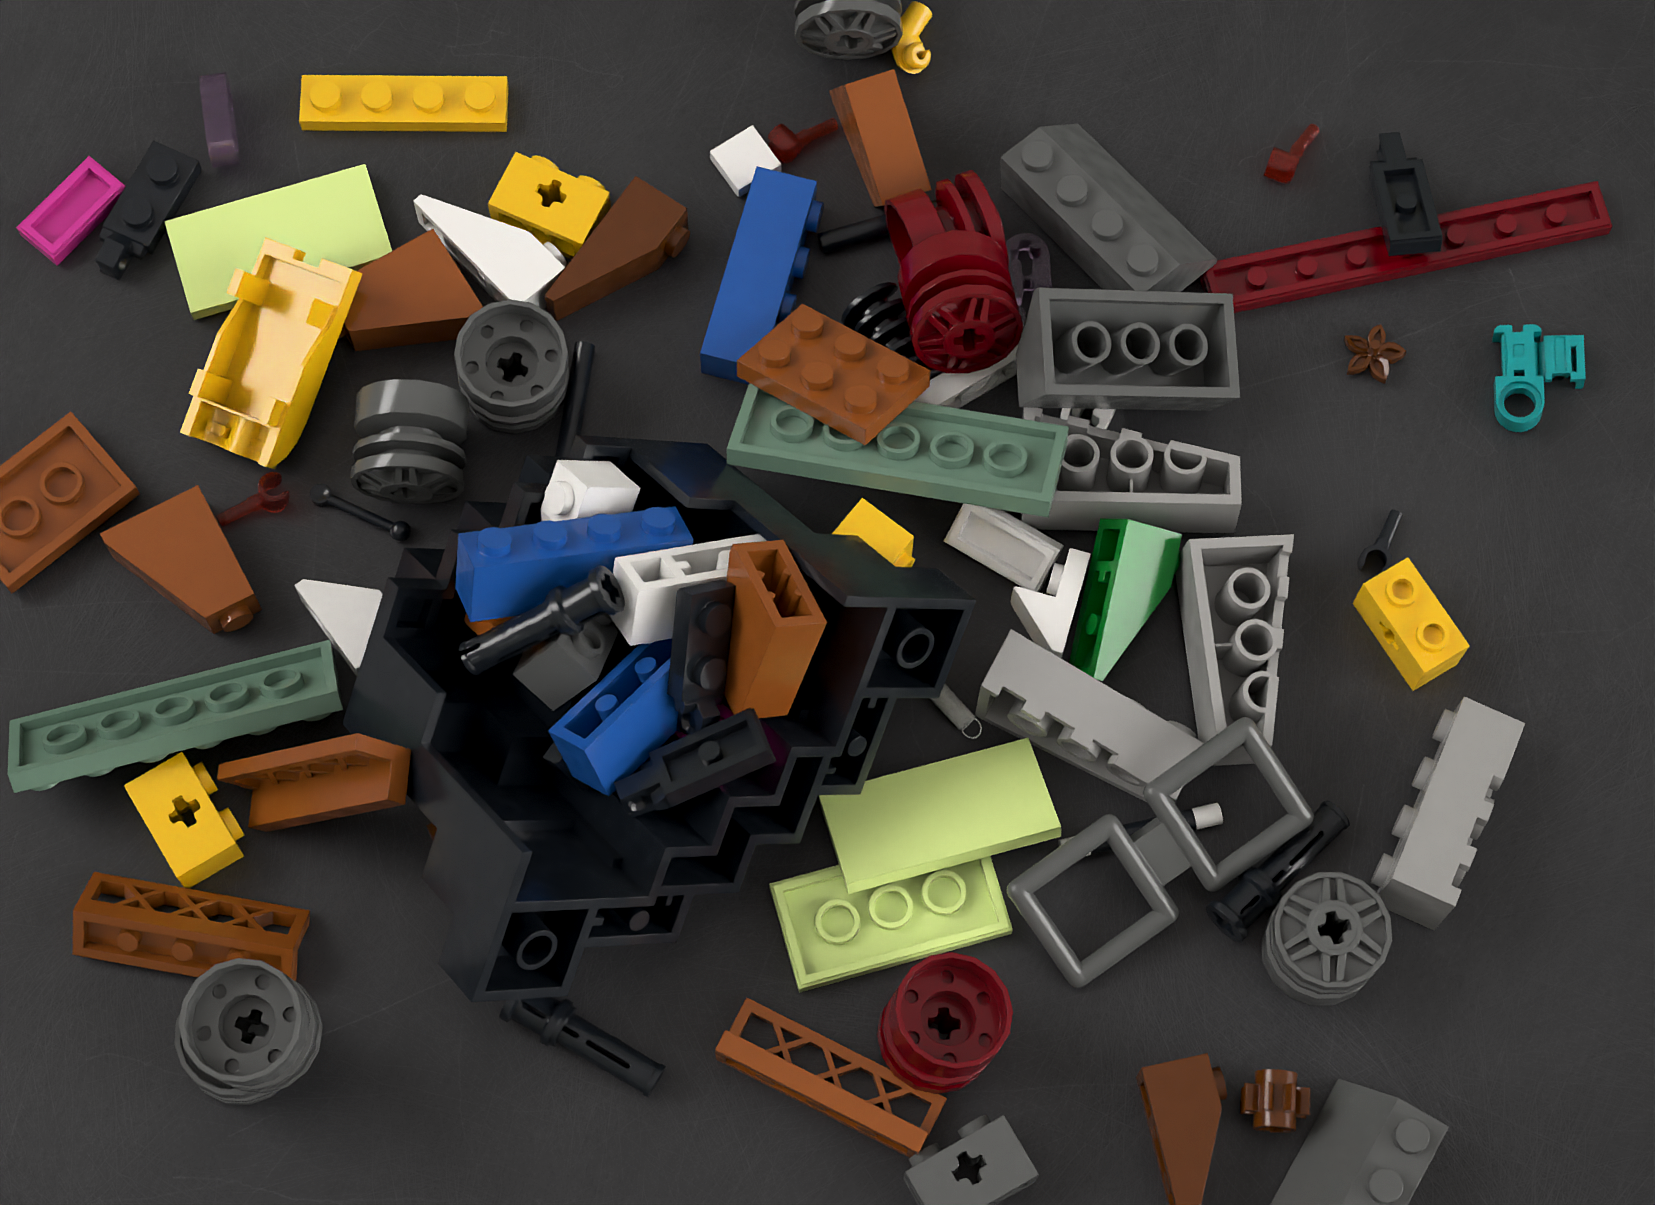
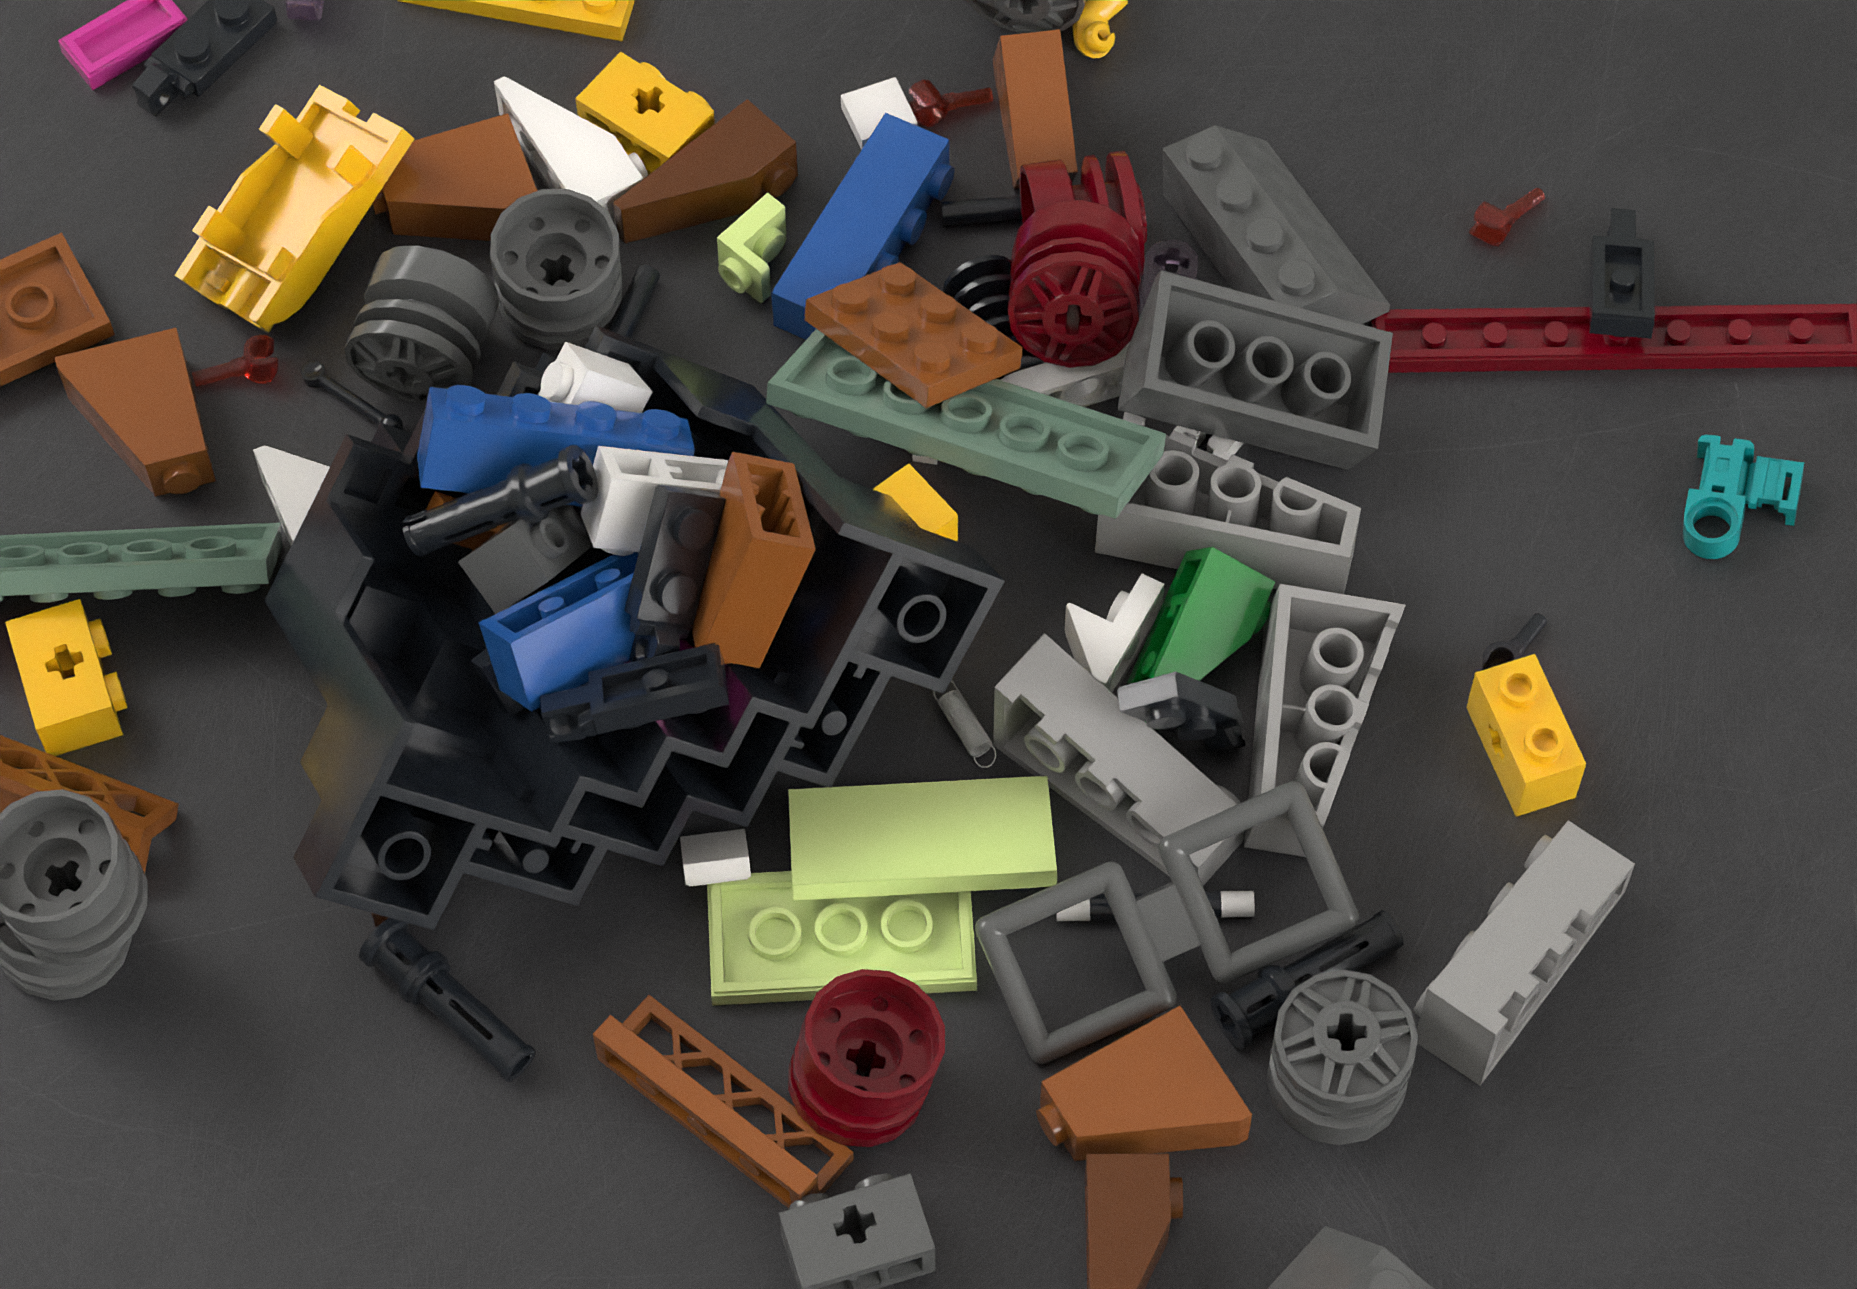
camera: 15 degrees right, 10 degrees down
(321, 780) = (219, 645): dark orange fence -> none
(323, 217) = (402, 84): yellowish green tile -> none
(670, 301) = (750, 245): none -> yellowish green bracket
(775, 869) = (715, 857): none -> white tile
(1004, 545) = (1068, 559): white tile -> none
(1136, 669) = (1185, 708): none -> black hinge
(1173, 1001) = (1145, 1096): none -> dark orange slope
(1275, 1101) = (1240, 1230): reddish brown gear -> none
(1373, 353) = (1553, 441): reddish brown plant -> none

